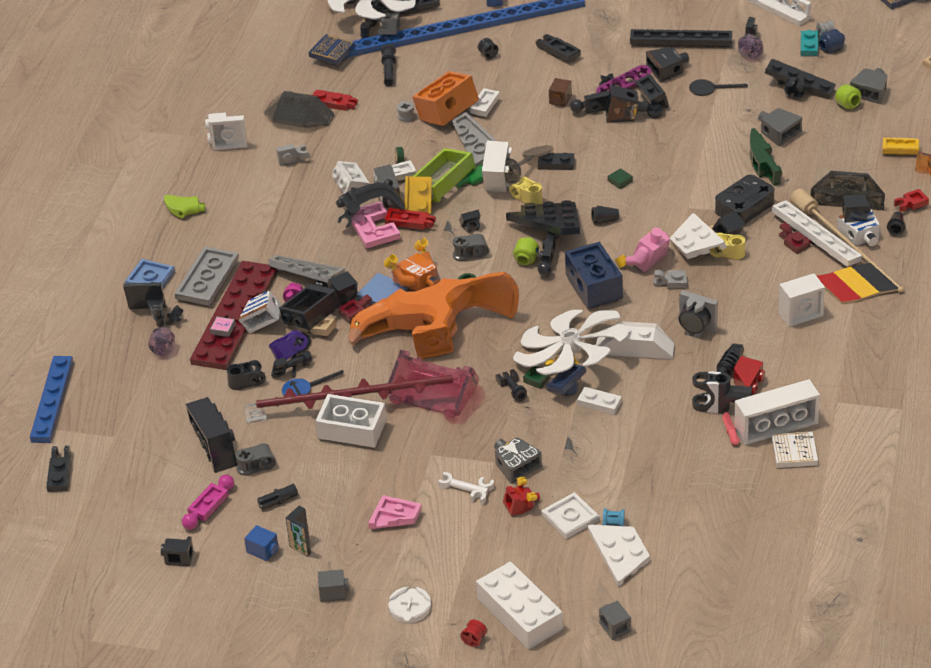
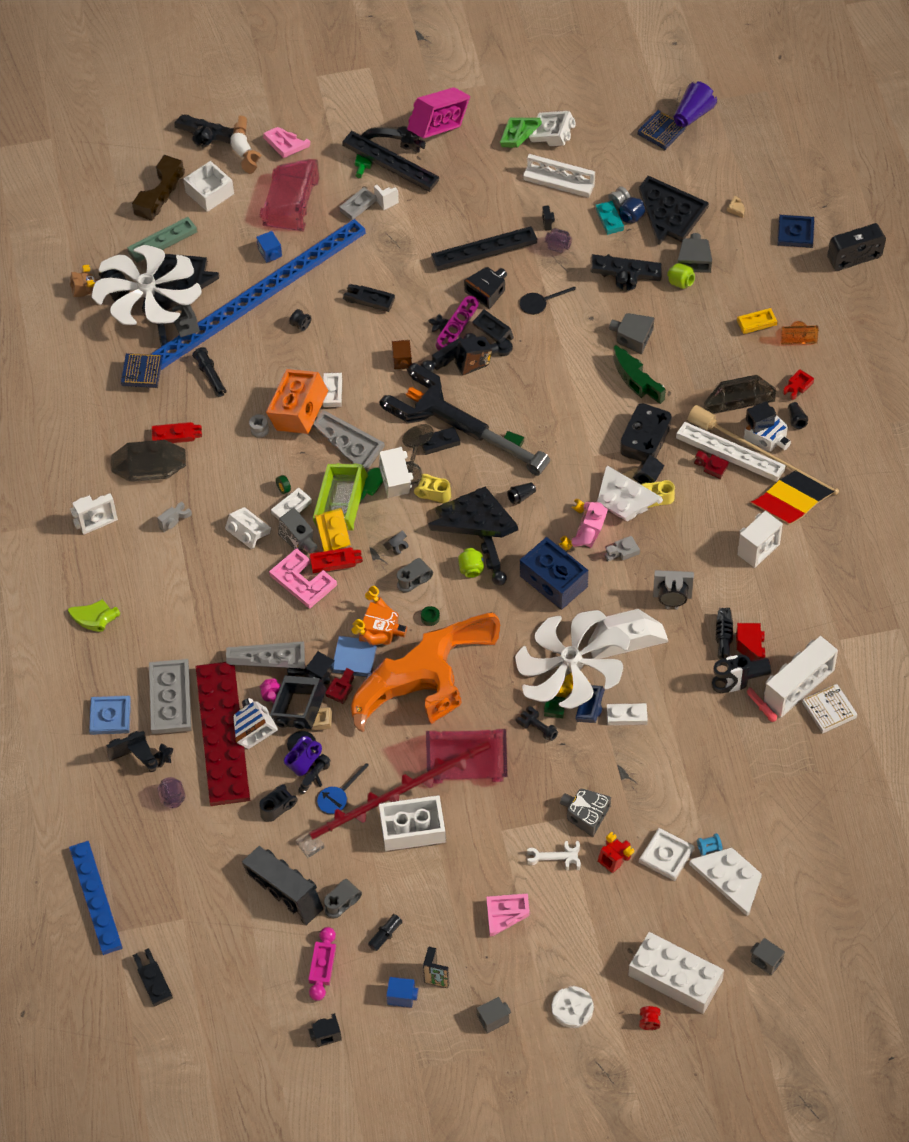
camera: 25 degrees left, 15 degrees up
(222, 326) = (225, 755): tile -> none
(354, 198) = (276, 559): black piece -> none
(567, 132) = (433, 404): none -> black piece
(869, 48) = (670, 209): none -> black wing

